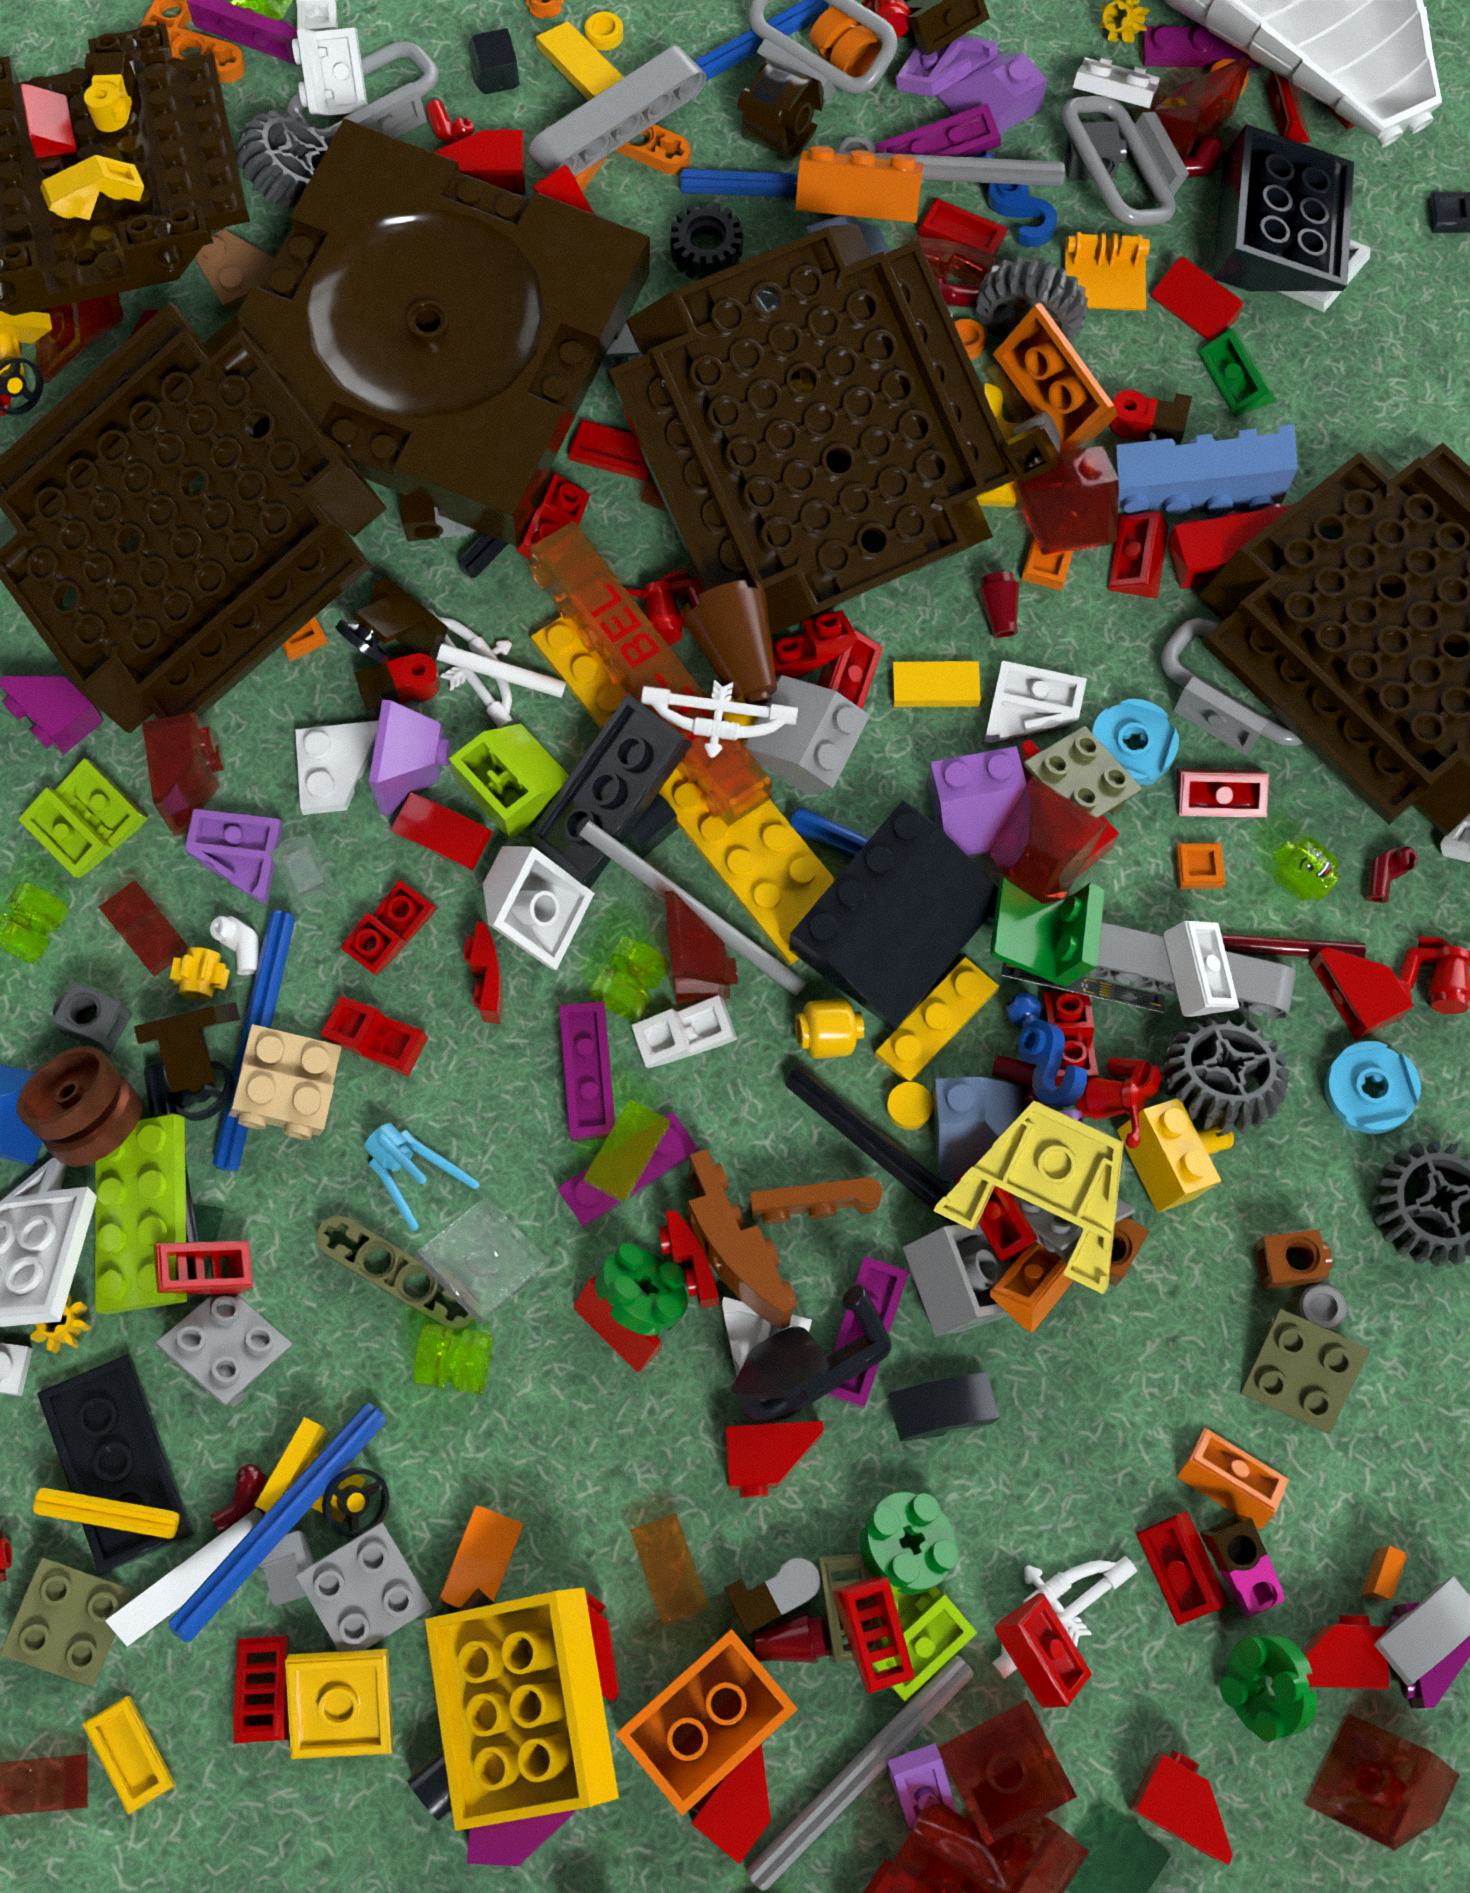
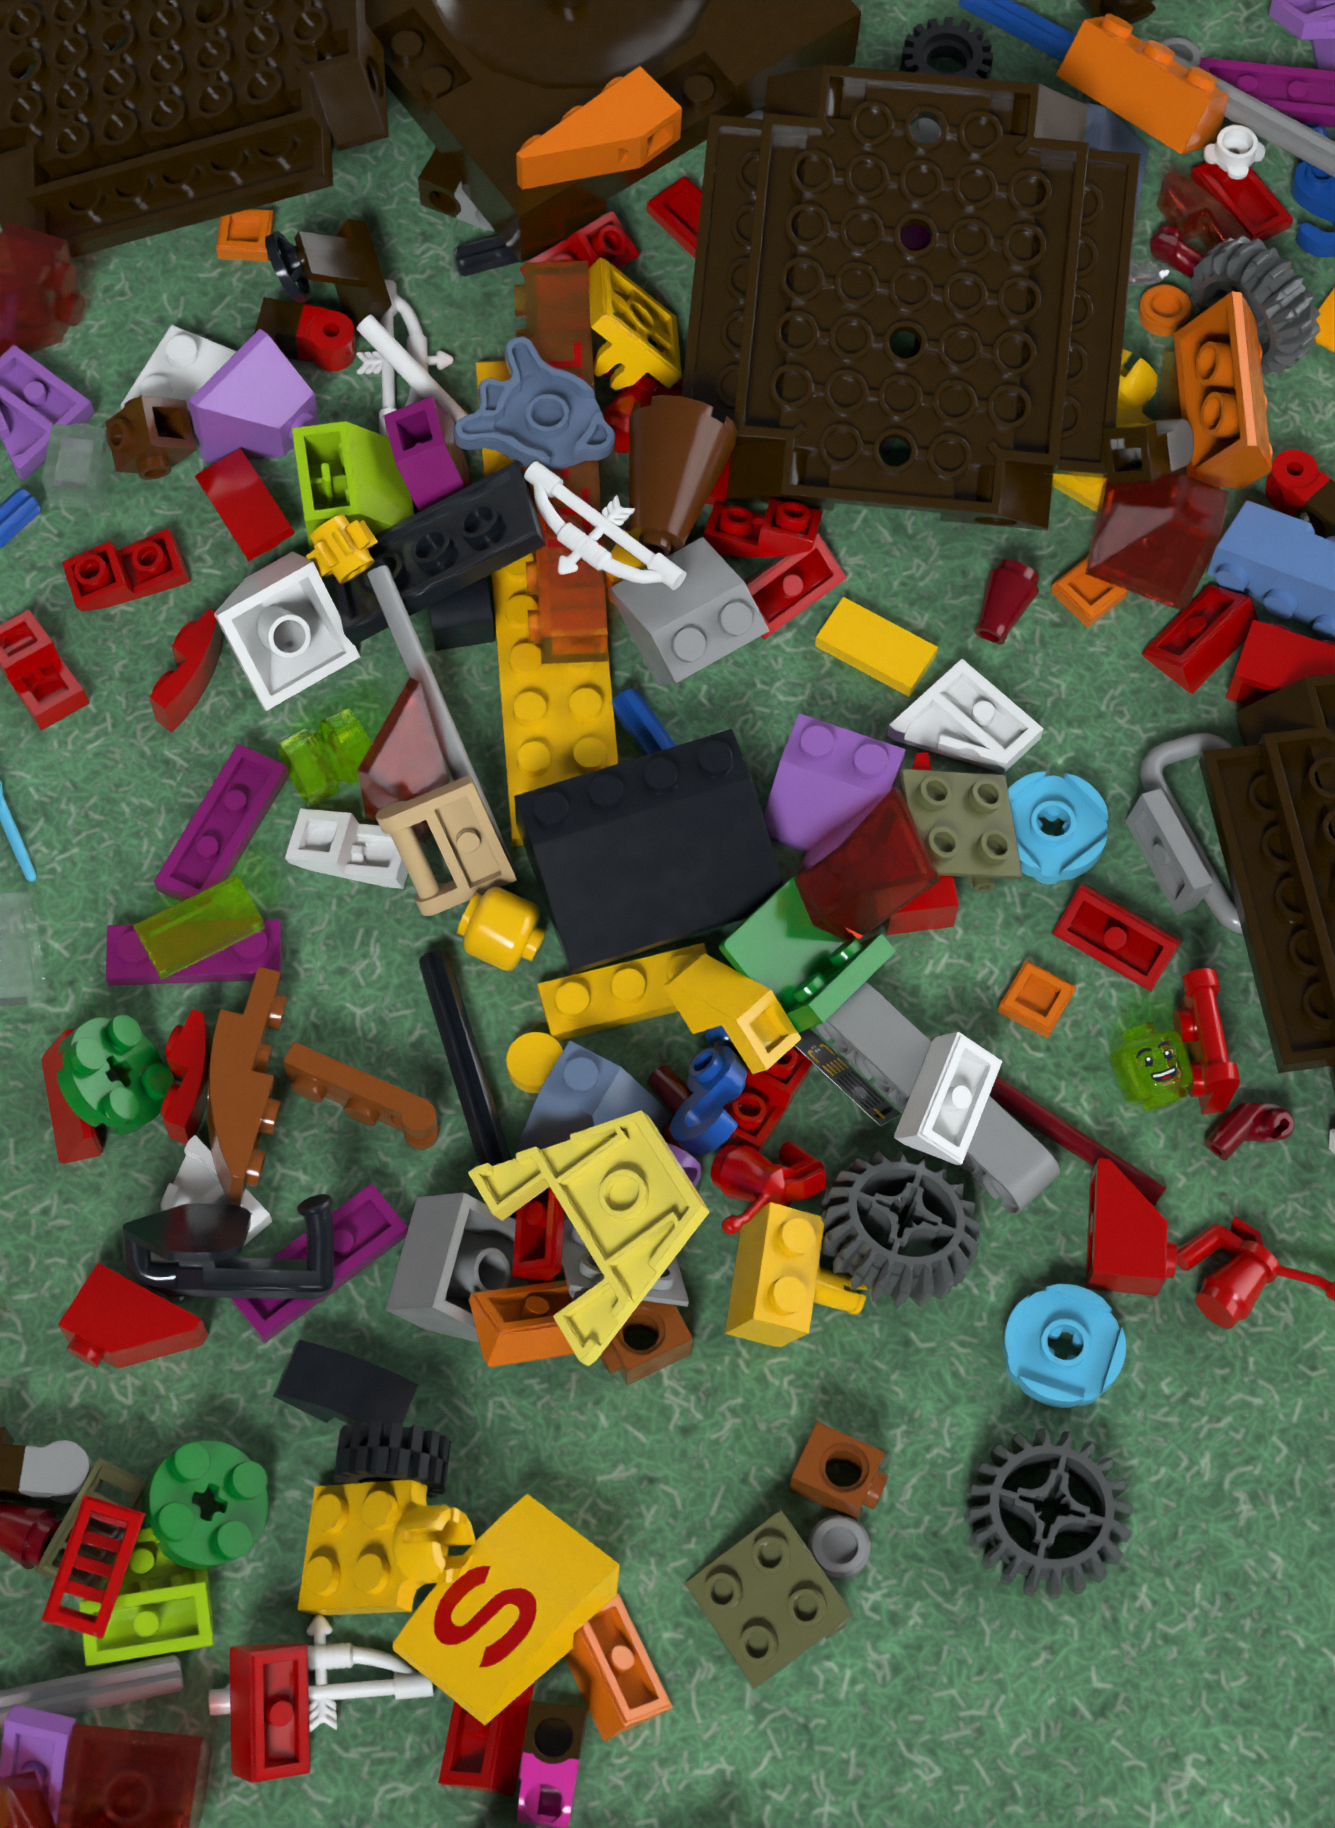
camera: 30 degrees right, 5 degrees down
(337, 826) = (150, 436): none -> reddish brown brick
(543, 421) = (607, 135): none -> orange slope
(543, 825) = (342, 548): none -> yellow gear
(552, 724) = (427, 452): none -> magenta slope
(618, 652) = (537, 414): none -> sand blue tile
(644, 562) = (626, 334): none -> yellow piece
(770, 982) = (463, 836): none -> tan plate
(946, 192) = (1234, 140): none -> white plate
(1012, 989) = (751, 1015): none -> yellow slope
(1012, 1434) = (392, 1454): none -> black tyre
(1043, 1499) = (378, 1546): none -> yellow plate
(1154, 1486) = (510, 1611): none -> yellow slope
(1327, 824) = (1200, 1027): none -> red plate

